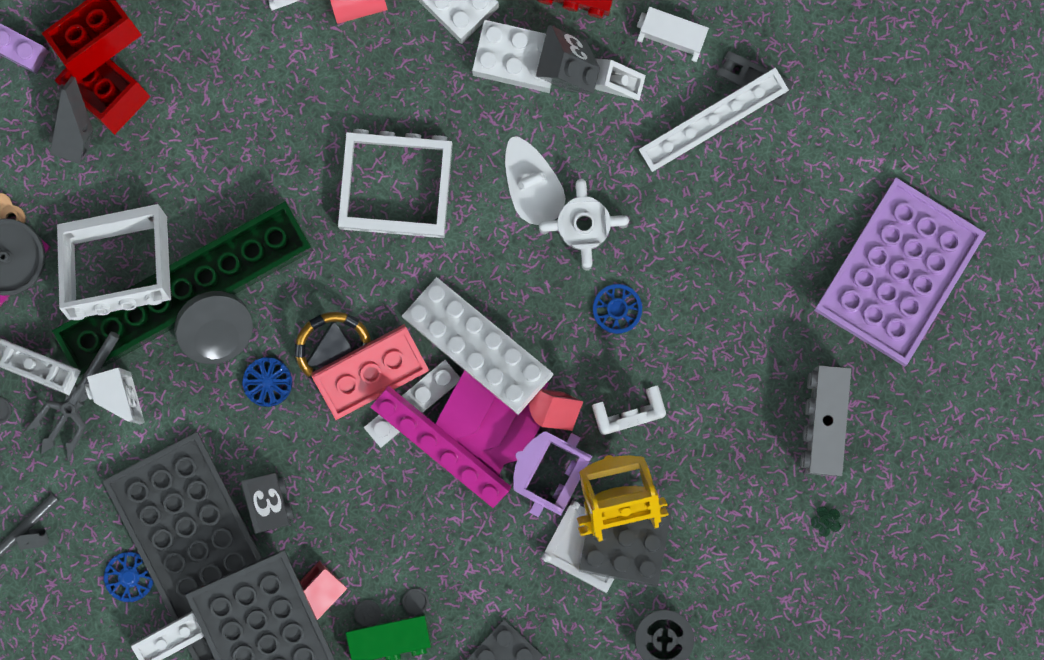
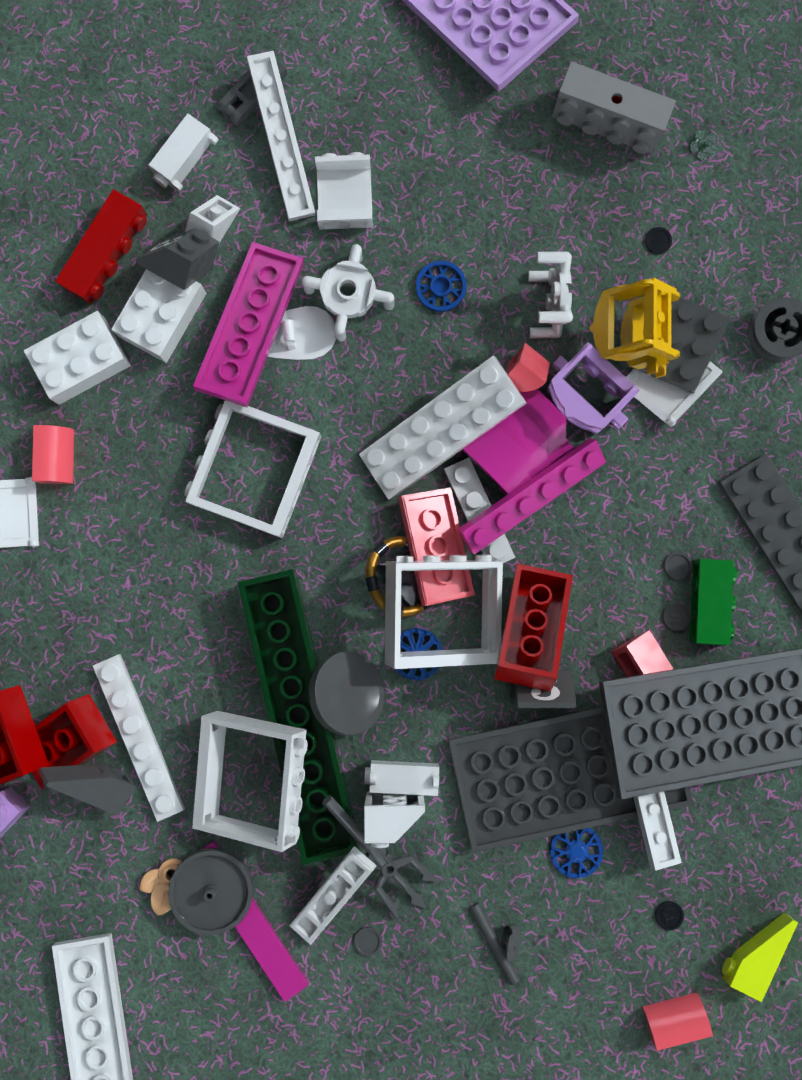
camera: 80 degrees left, 0 degrees up
(123, 152) = (138, 737): none -> white plate
(152, 400) = (402, 778): none -> white brick
(266, 399) = (439, 658): none -> white window
(318, 478) = (534, 627): none -> red brick
(527, 142) = (249, 324): none -> dark pink plate
(680, 193) = (344, 191): none -> white panel
(720, 502) = (658, 240): none -> black piece

